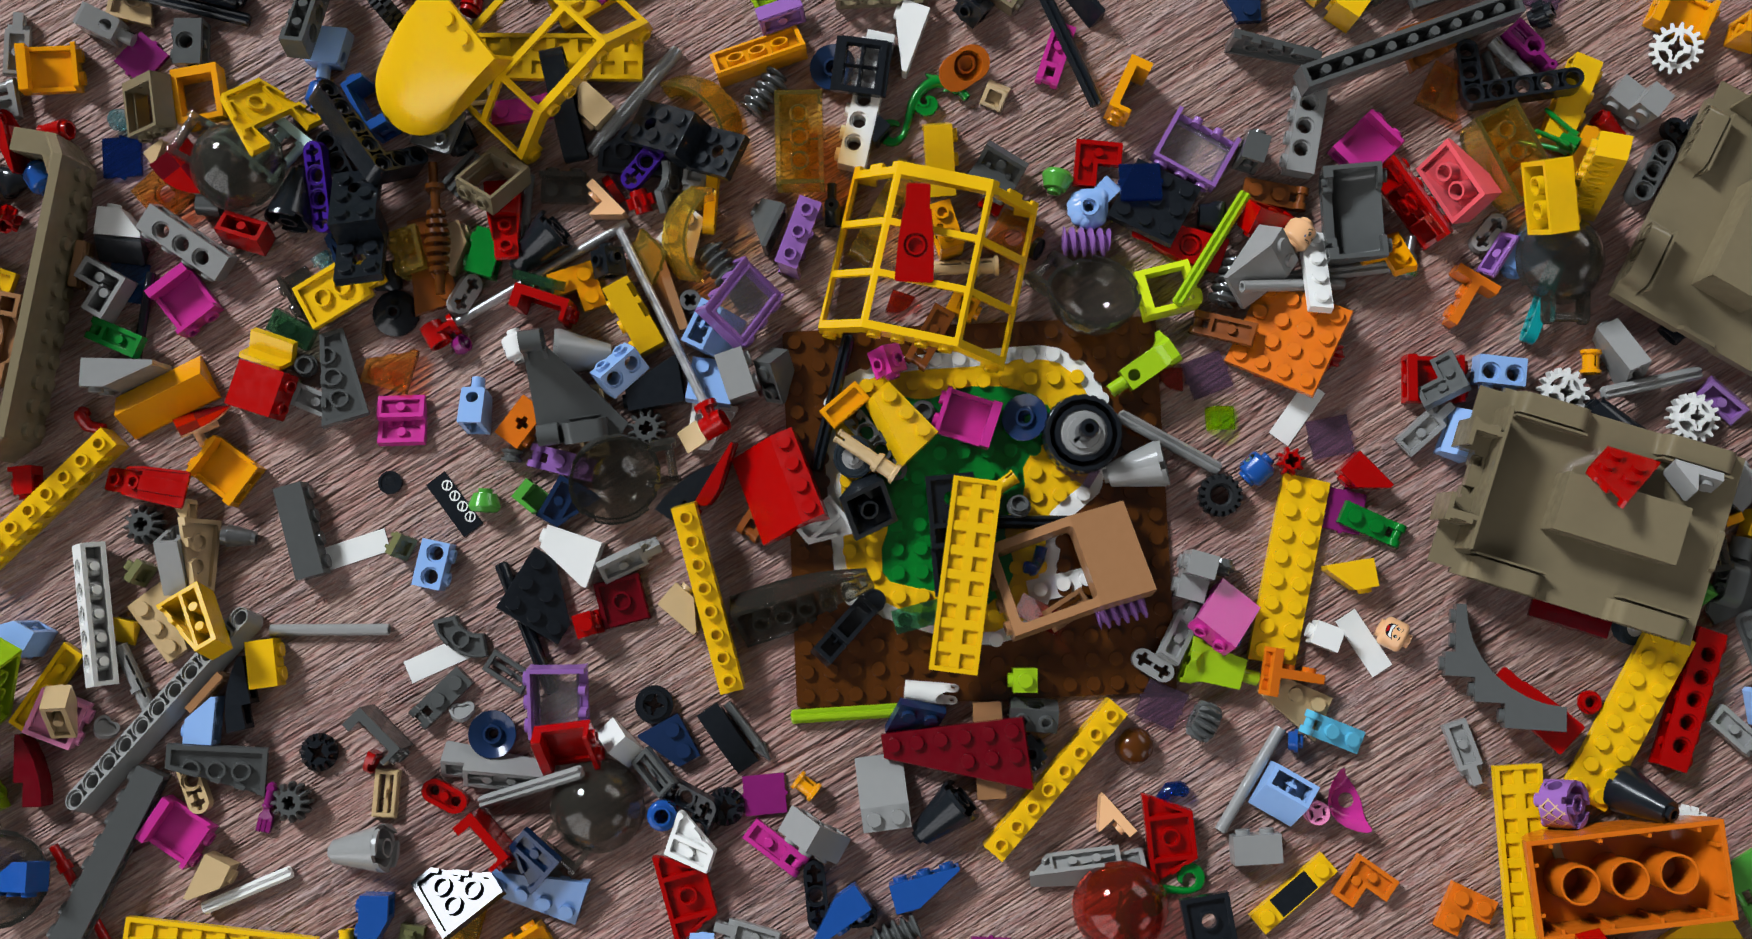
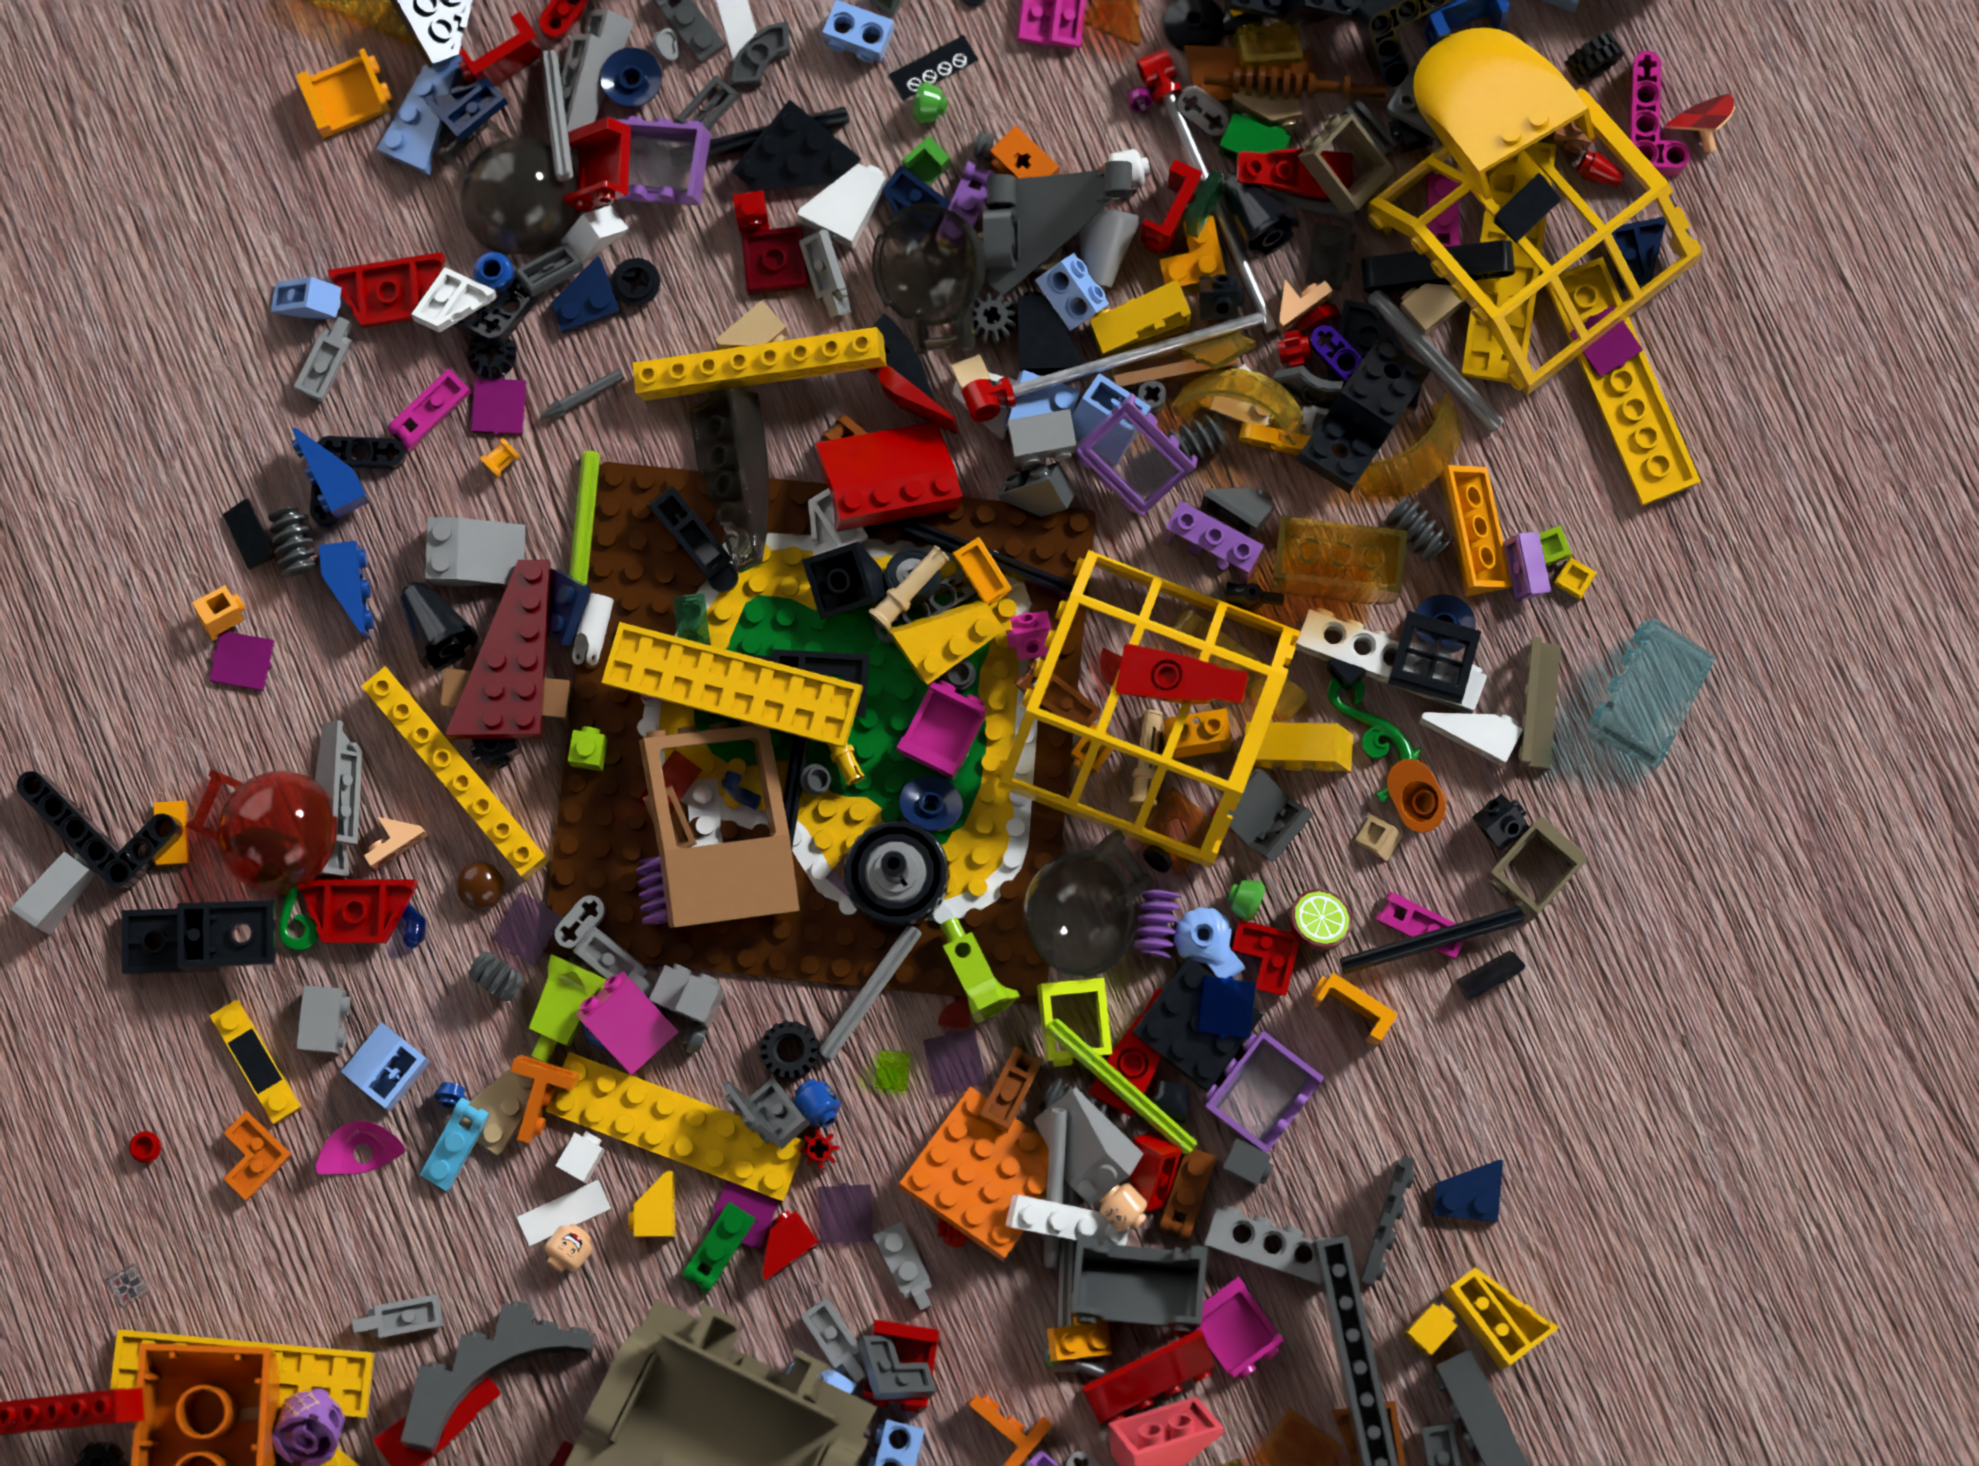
camera: 100 degrees right, 5 degrees down
(475, 408) = (1052, 106): light blue torso -> none
(516, 28) = (1527, 208): none -> black slope
(727, 737) = (578, 367): black slope -> none
(813, 836) = (434, 455): light grey brick -> none
(1038, 713) = (542, 760): dark grey brick -> none
(1063, 126) = (1320, 919): none -> tile
(1139, 468) = (839, 944): light grey cone -> none
(1250, 779) = (411, 1030): light grey piece -> none
(1272, 502) = (769, 1112): none -> dark grey bracket
(1295, 416) = (880, 1173): white sticker -> none
(1320, 814) = (350, 1102): bright pink wheel -> none
(1359, 388) = (904, 1264): none -> light grey hinge
(1458, 903) = (205, 1283): orange plate -> none

